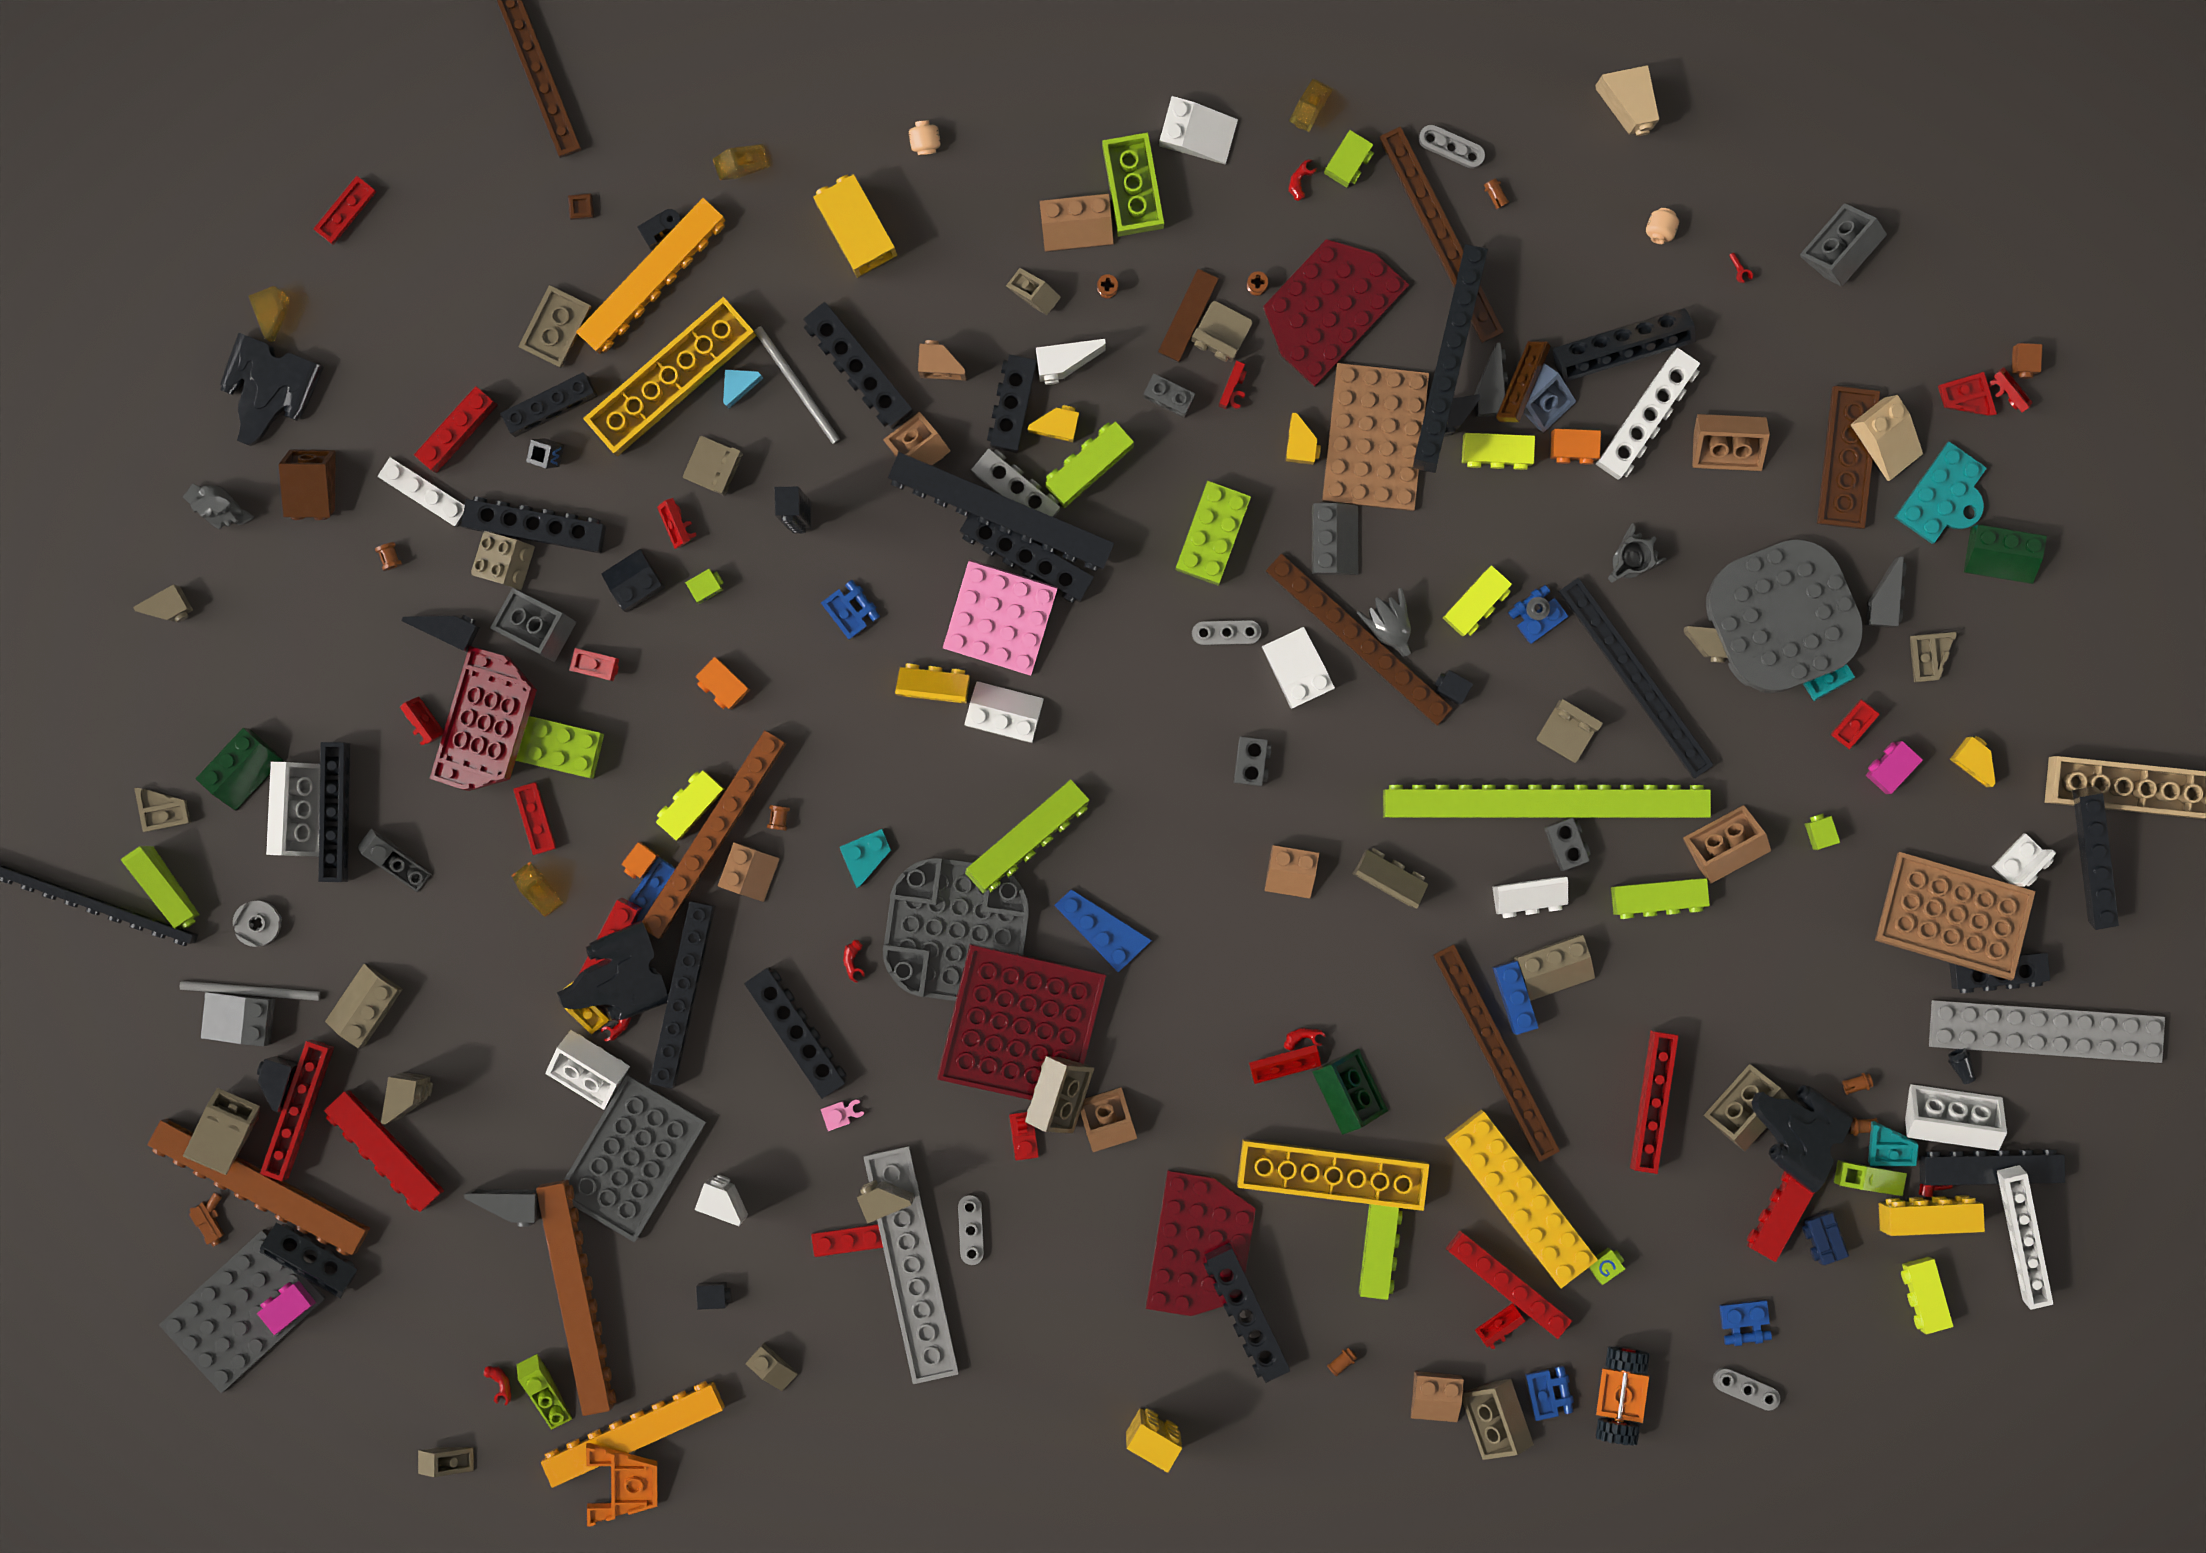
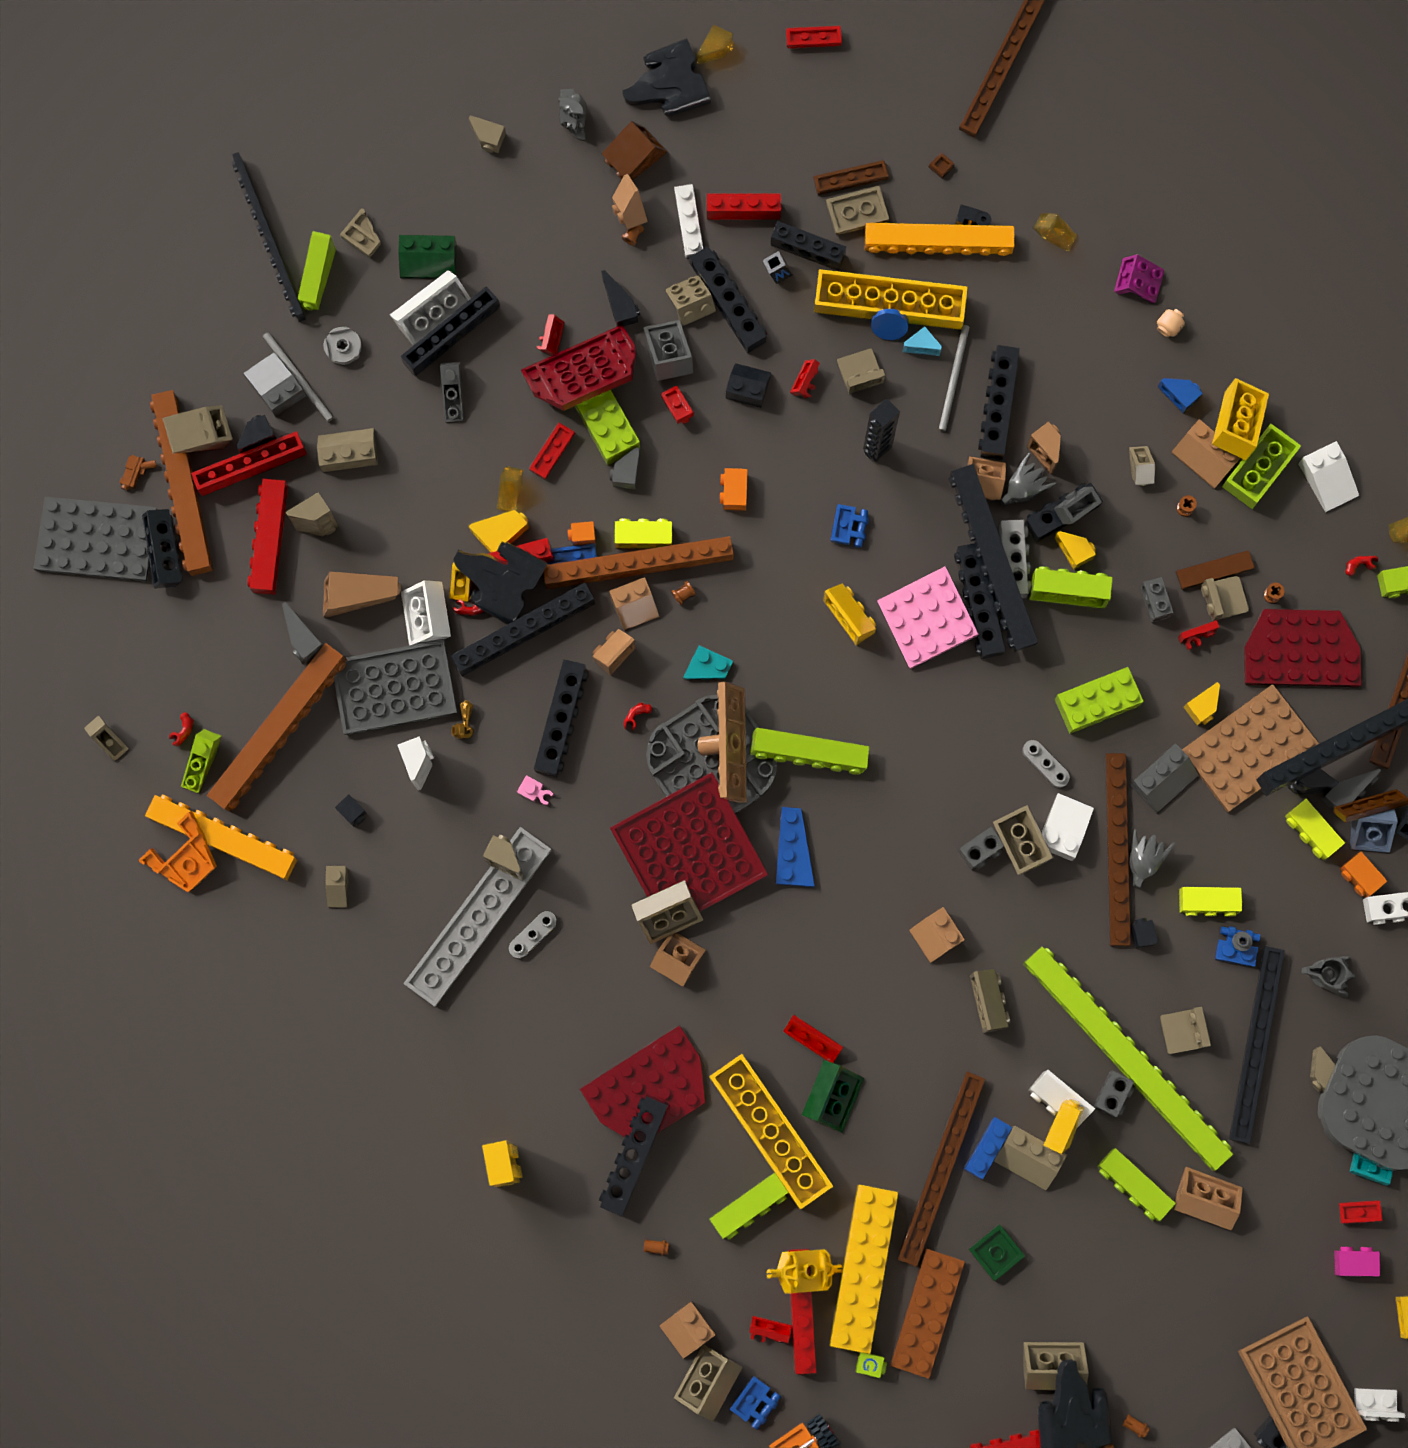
camera: 55 degrees right, 10 degrees down
(286, 1307) = (120, 559): dark pink brick -> none
(358, 538) = (628, 204): none -> medium nougat slope
(507, 1120) = (355, 591): none -> medium nougat slope
(516, 302) = (850, 177): none -> reddish brown tile
(569, 933) = (500, 528): none -> yellow slope
(615, 767) = (625, 470): none -> dark grey slope
(694, 400) = (889, 324): none -> blue tile
(705, 585) = (784, 428): lime brick -> none
(723, 1134) = (459, 729): none -> pearl gold piece
(776, 930) = (614, 651): none -> medium nougat slope
(846, 1240) = (457, 863): red plate -> none
(854, 225) = (1081, 326): yellow brick -> none
(856, 126) = (1139, 277): none -> magenta bracket
(956, 414) = (1025, 484): none -> dark grey piece
(957, 904) = (729, 743): none -> medium nougat plate
(998, 191) = (1180, 392): none -> blue slope
(1004, 712) = (871, 671): white slope -> none
(1020, 389) = (1077, 505): none -> dark grey brick
(1023, 1137) = (619, 916): red plate -> none
(1061, 360) = (1120, 518): white slope -> none
(1074, 164) = (1240, 419): none -> yellow brick
(1277, 720) = (1023, 840): none -> dark tan slope
(1296, 1036) = (835, 1030): red piece -> none
(1467, 1261) = (793, 1271): none -> yellow plate
(1558, 917) = (1064, 1126): none -> yellow slope
(1606, 1176) = (927, 1313): none -> dark orange plate
(1609, 1070) = (996, 1252): none -> dark green plate
(1654, 1102) = (1003, 1299): red brick -> none
(1822, 831) = (1273, 1253): lime brick -> none

